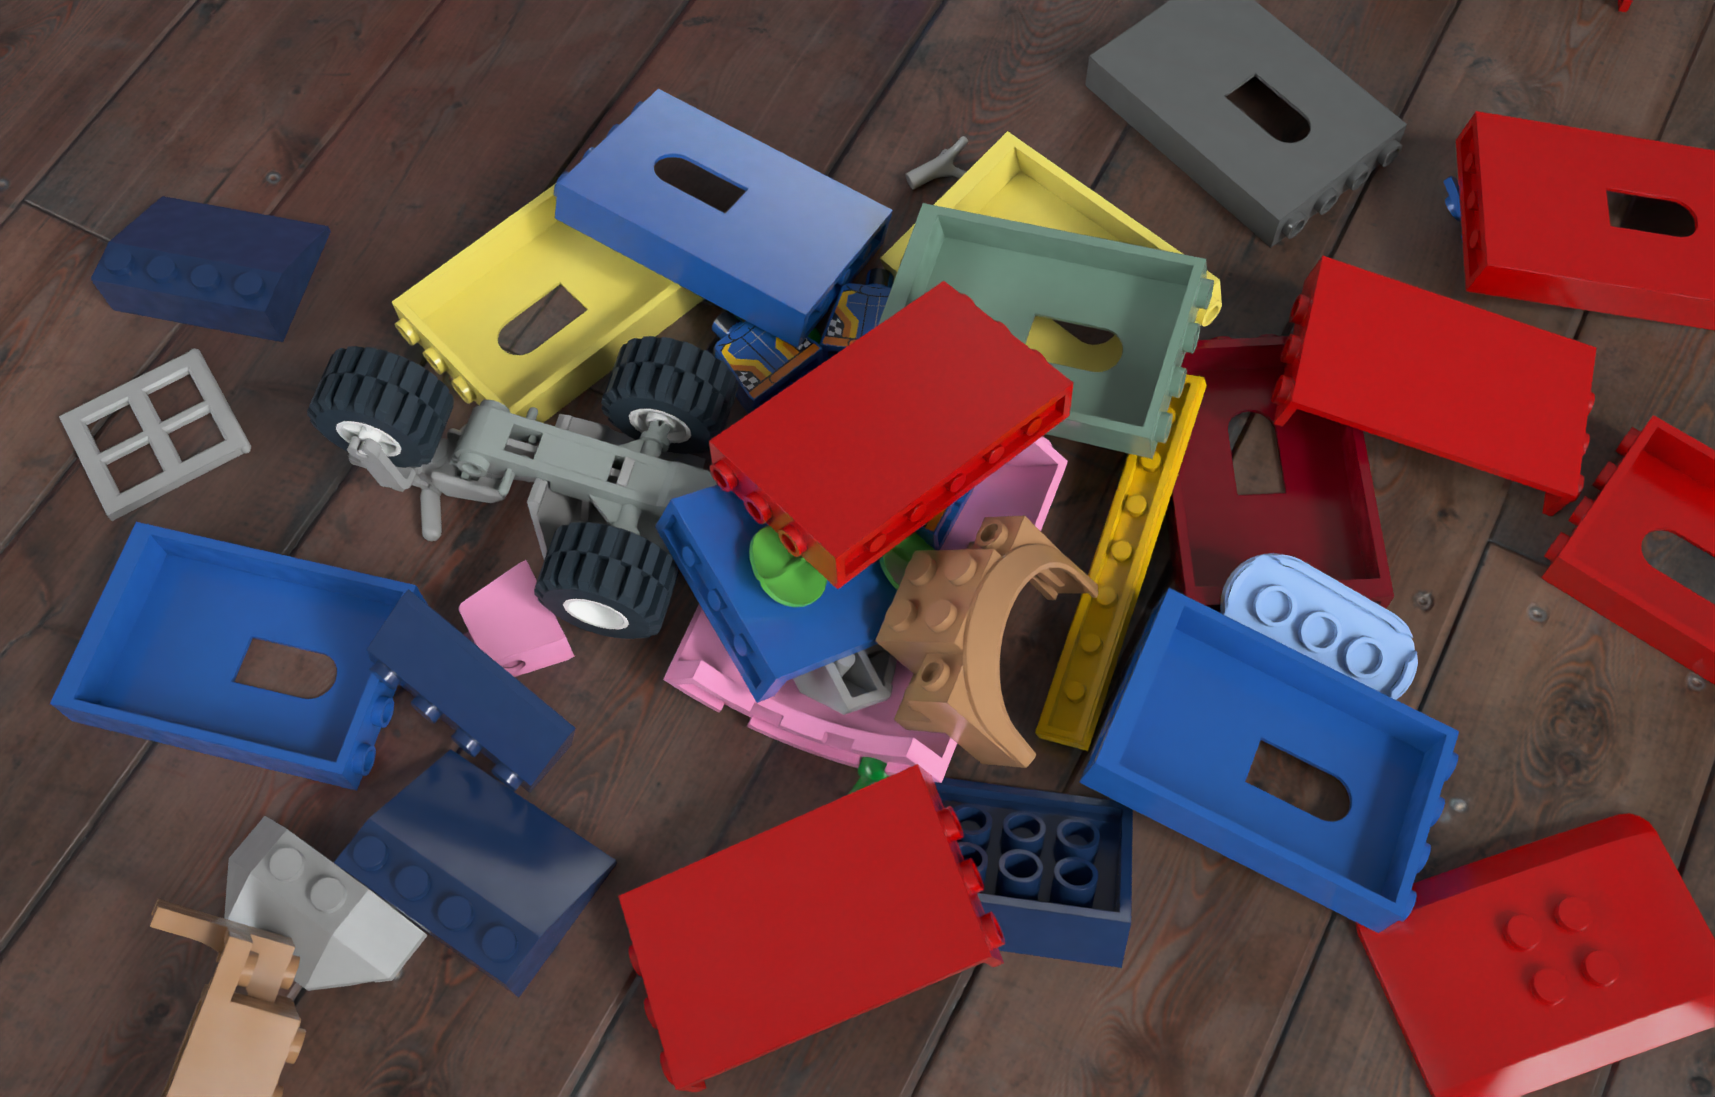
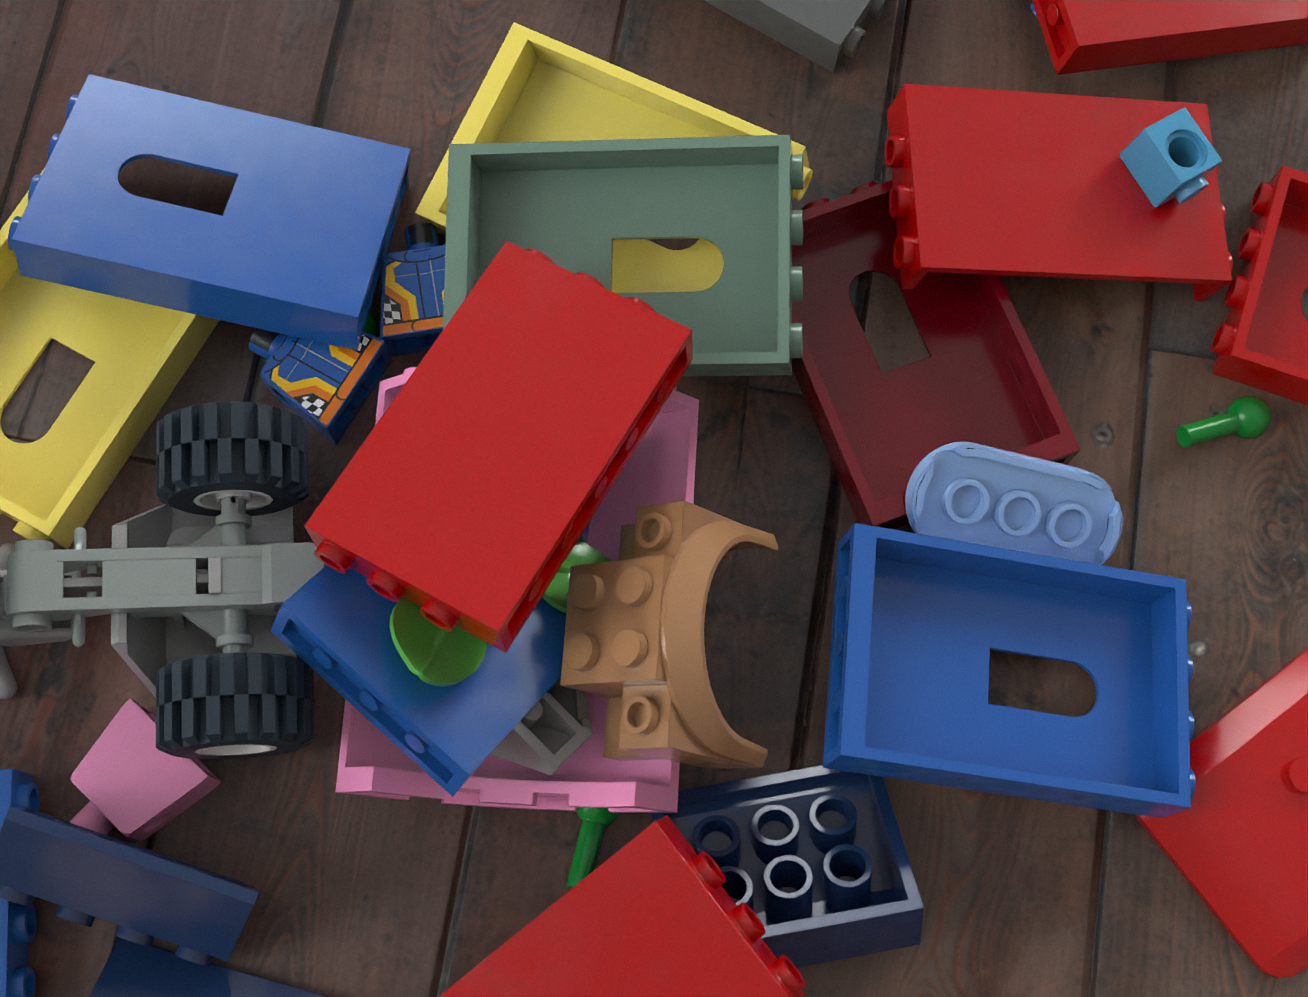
camera: 25 degrees left, 10 degrees up
(938, 167) = (443, 75): light grey bar -> none
(1119, 571) = (789, 511): yellow tile -> none
(1545, 376) = (1171, 159): none -> dark azure brick
(1560, 621) = (1244, 417): none -> green bar

